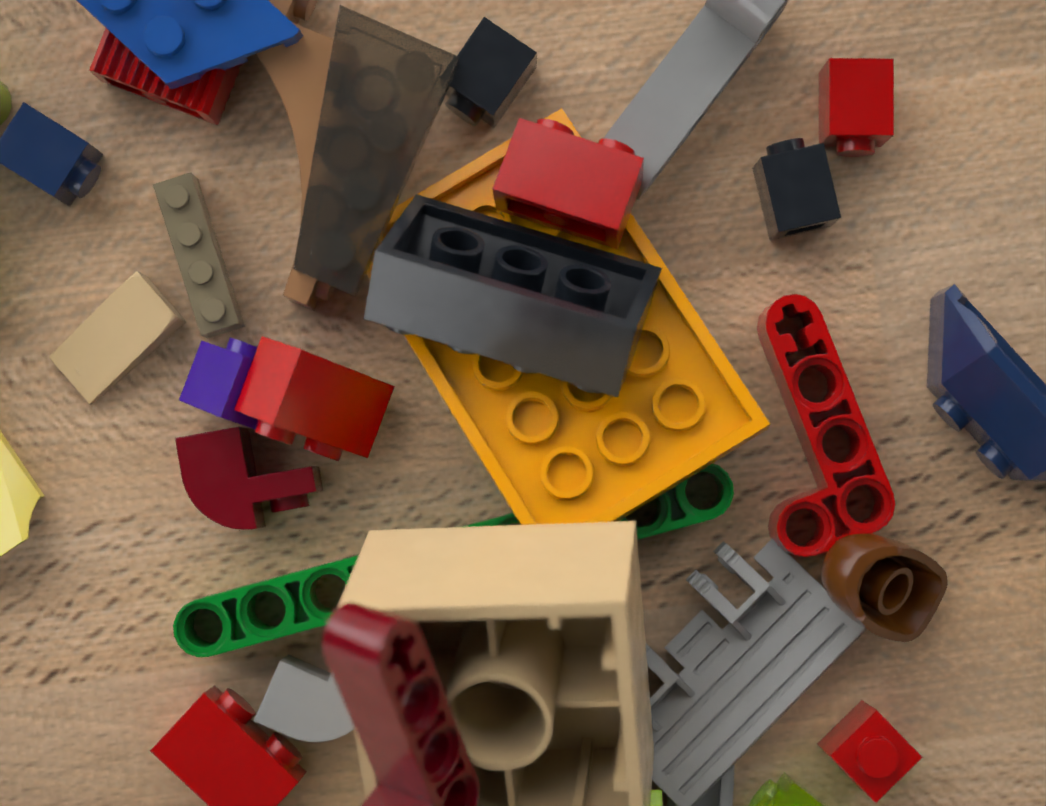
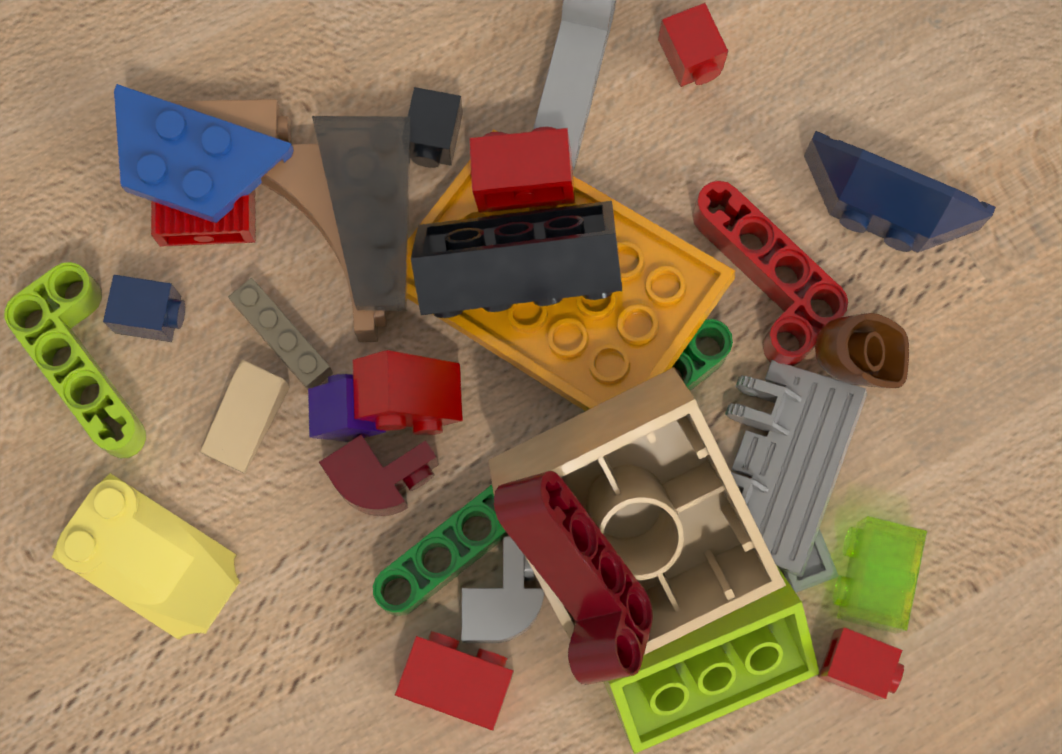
camera: 25 degrees left, 10 degrees down
(795, 188) = (678, 117): black brick -> none
(869, 750) = (909, 474): red brick -> none

